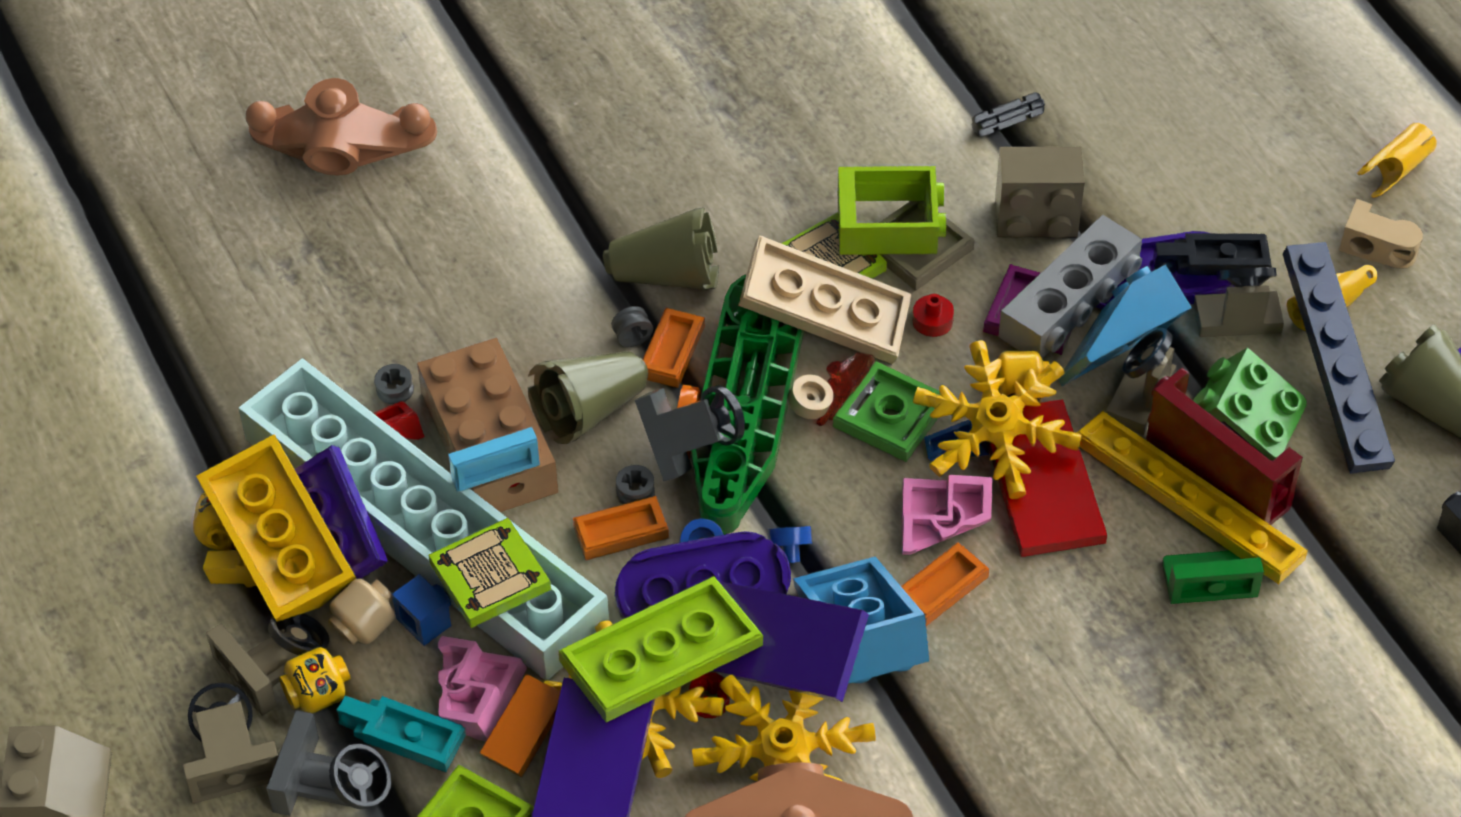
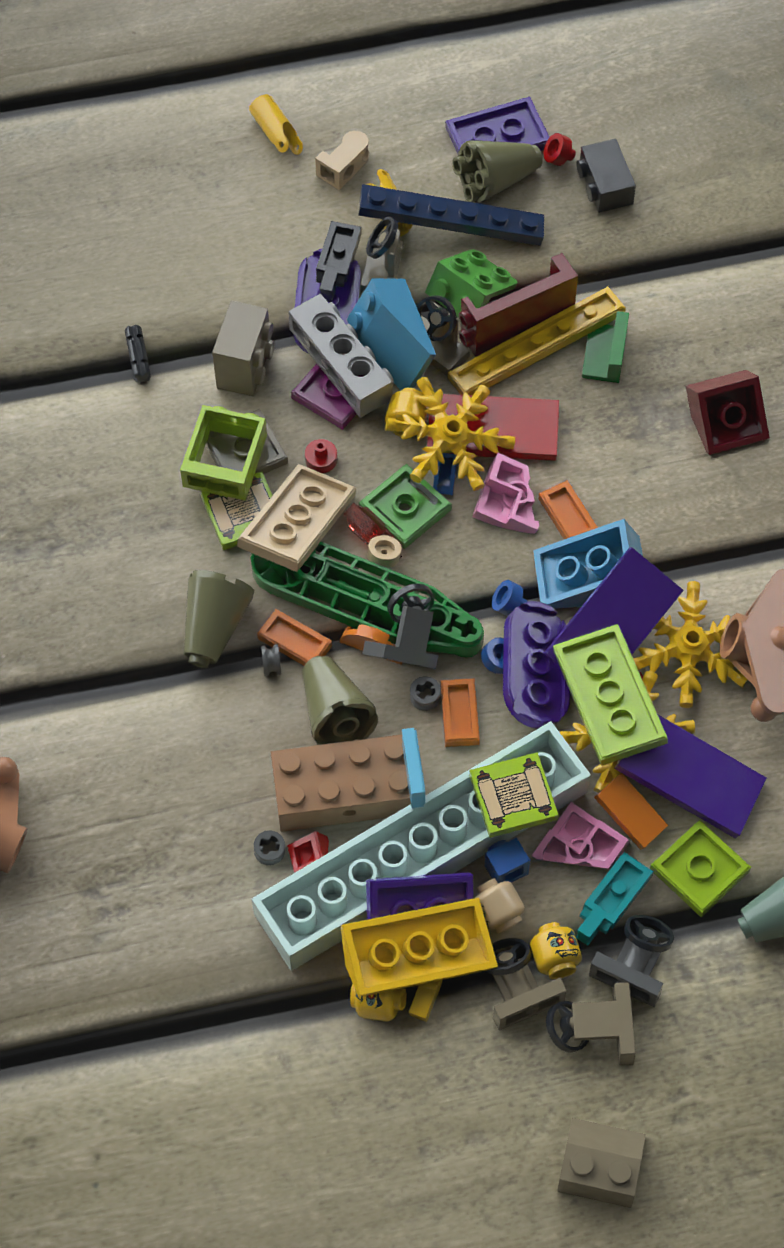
camera: 75 degrees left, 10 degrees up
(1164, 725) = (728, 411): none -> dark red slope

